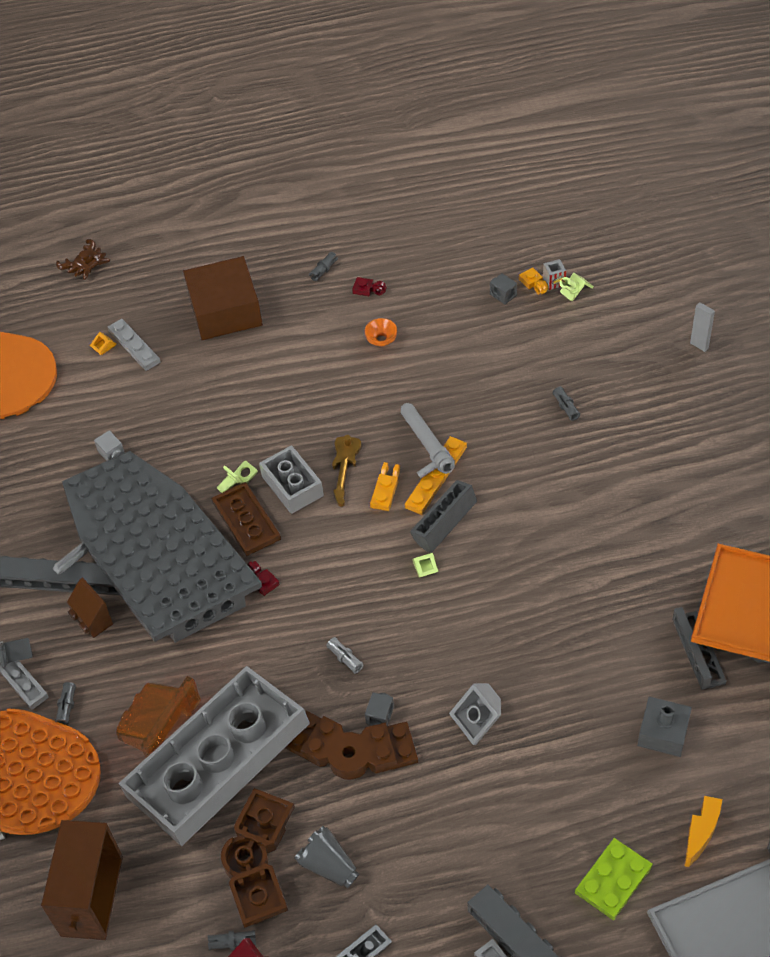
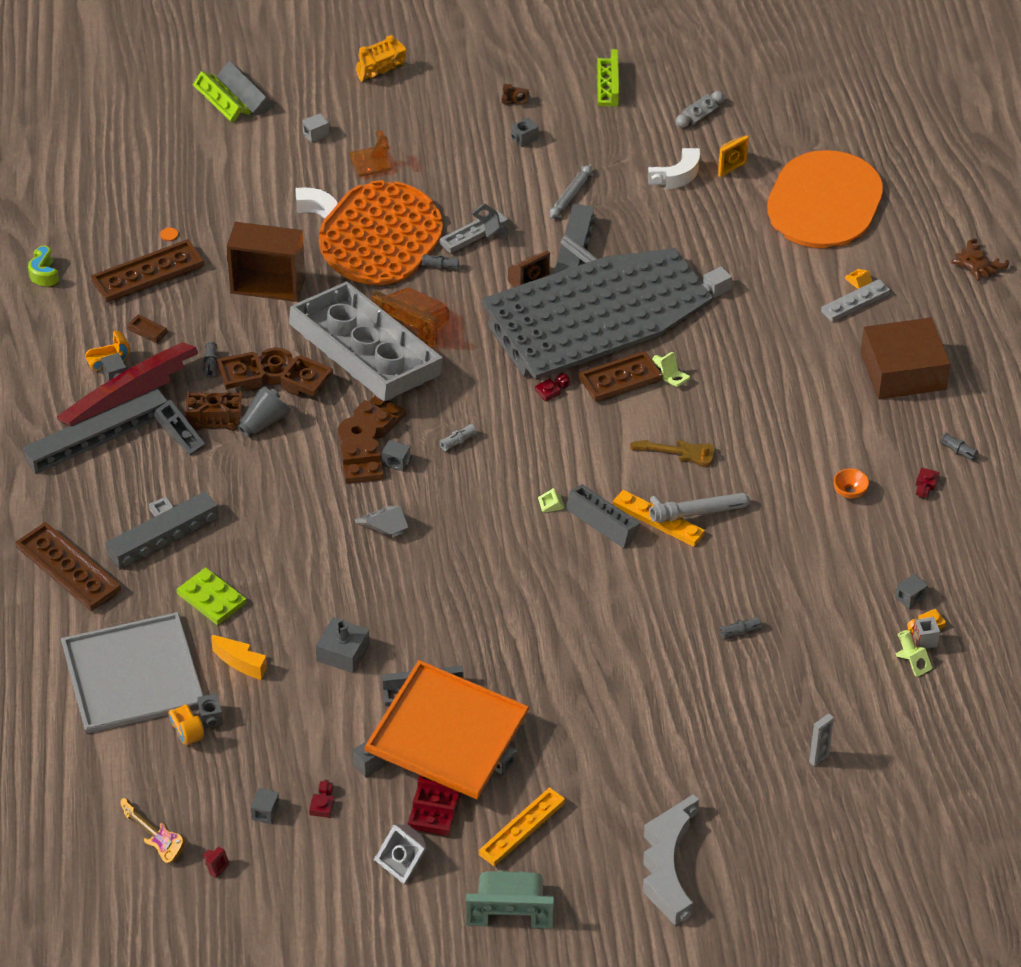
camera: 90 degrees right, 5 degrees down
(291, 479) = (657, 404): light grey brick -> none
(334, 918) = (213, 410): none -> reddish brown piece
(385, 488) = (647, 479): light orange hinge -> none

